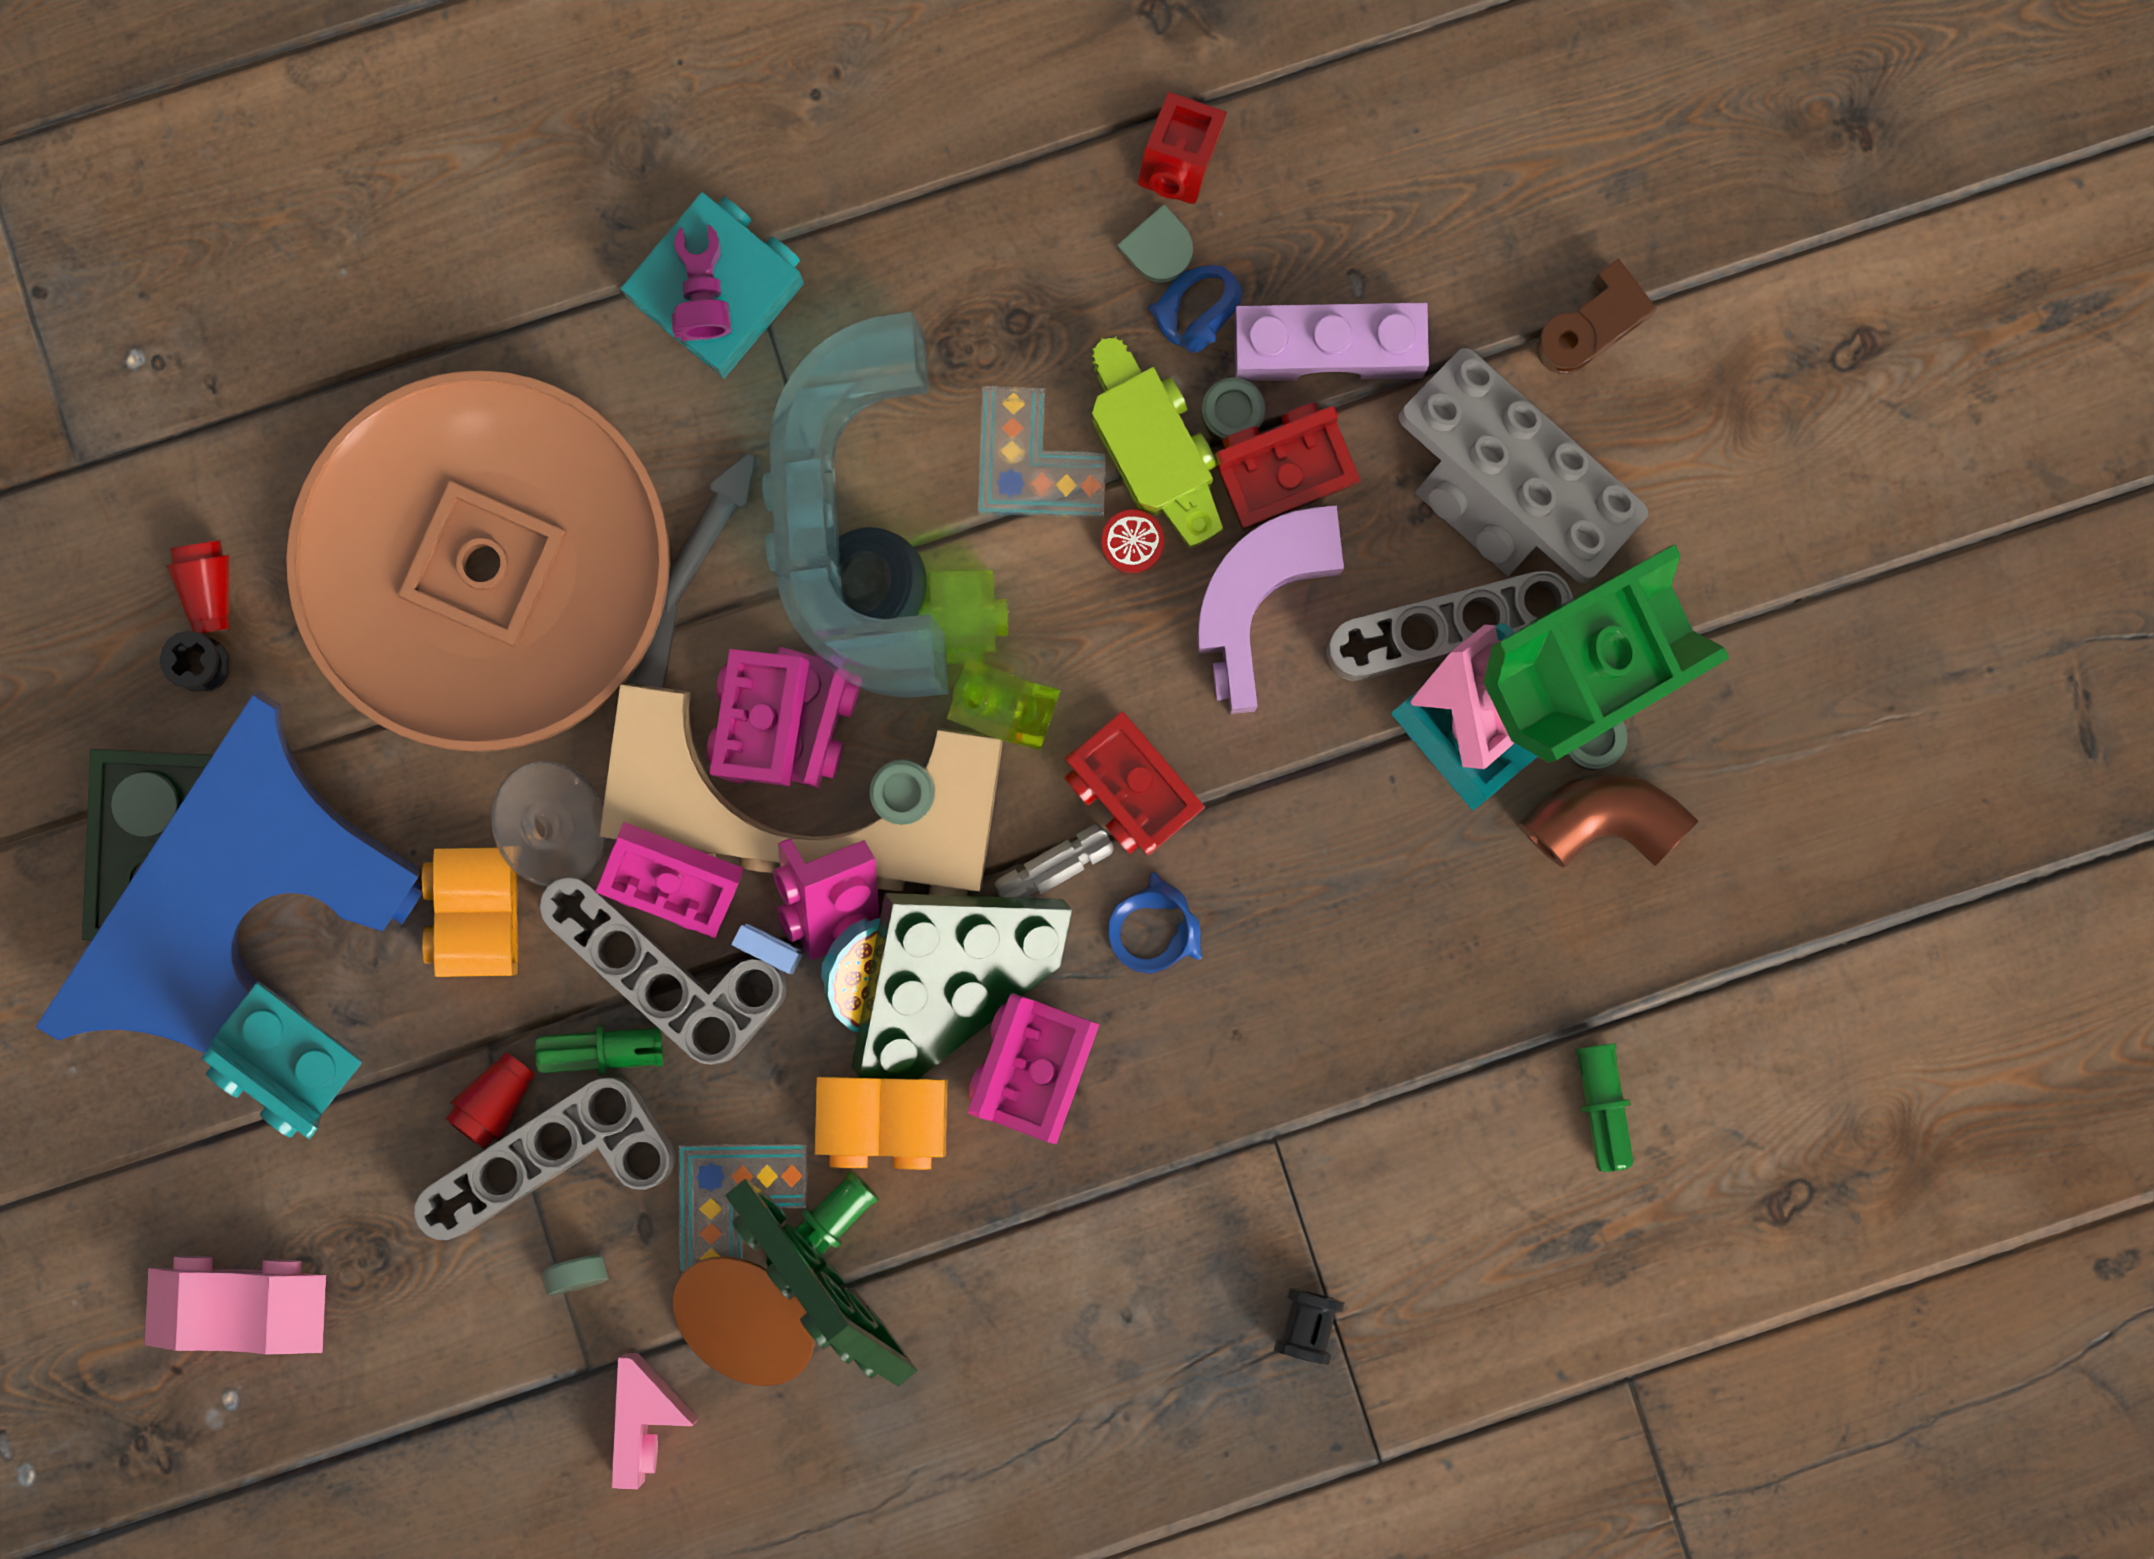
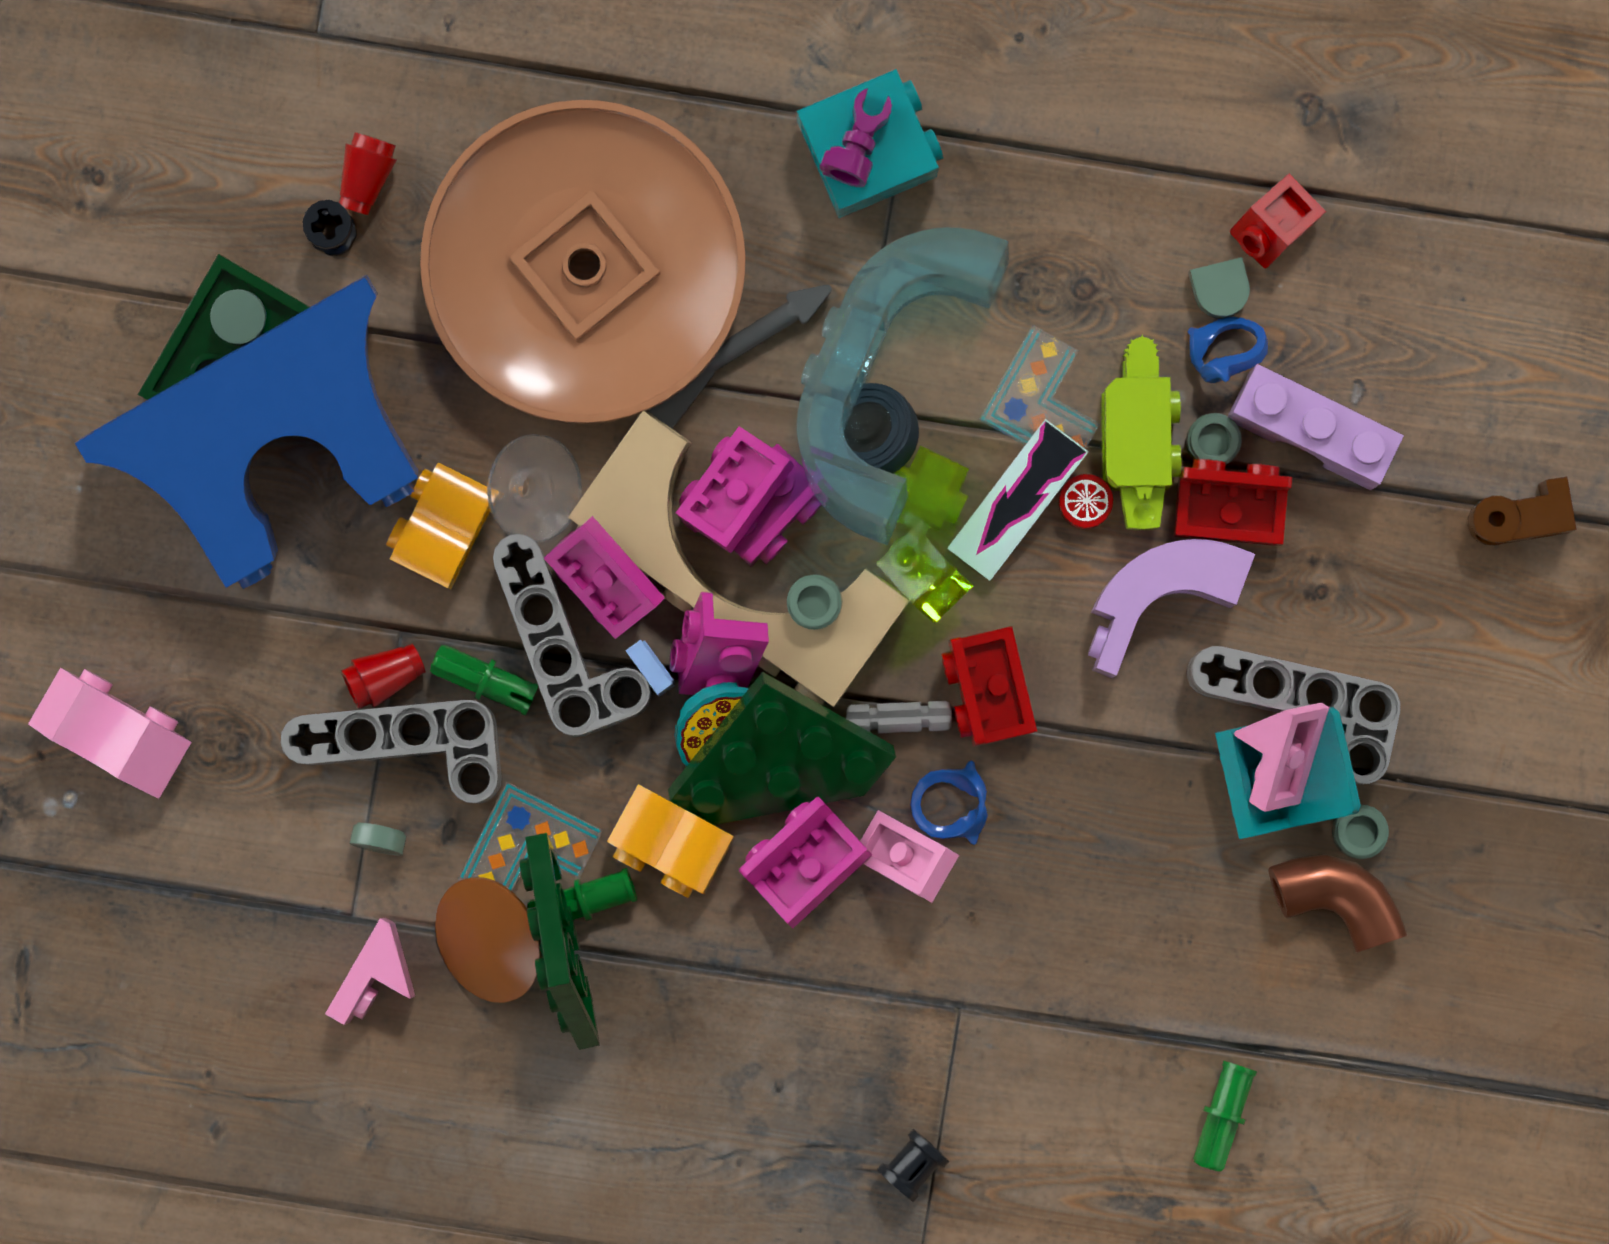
camera: 20 degrees right, 0 degrees up
(279, 1061) = (244, 563): teal bracket -> none
(1060, 576) = (1017, 499): none -> tile
(1136, 1007) = (907, 856): none -> bright pink slope
(1515, 475) = (1402, 600): light grey bracket -> none
(1597, 660) = (1393, 773): green piece -> none

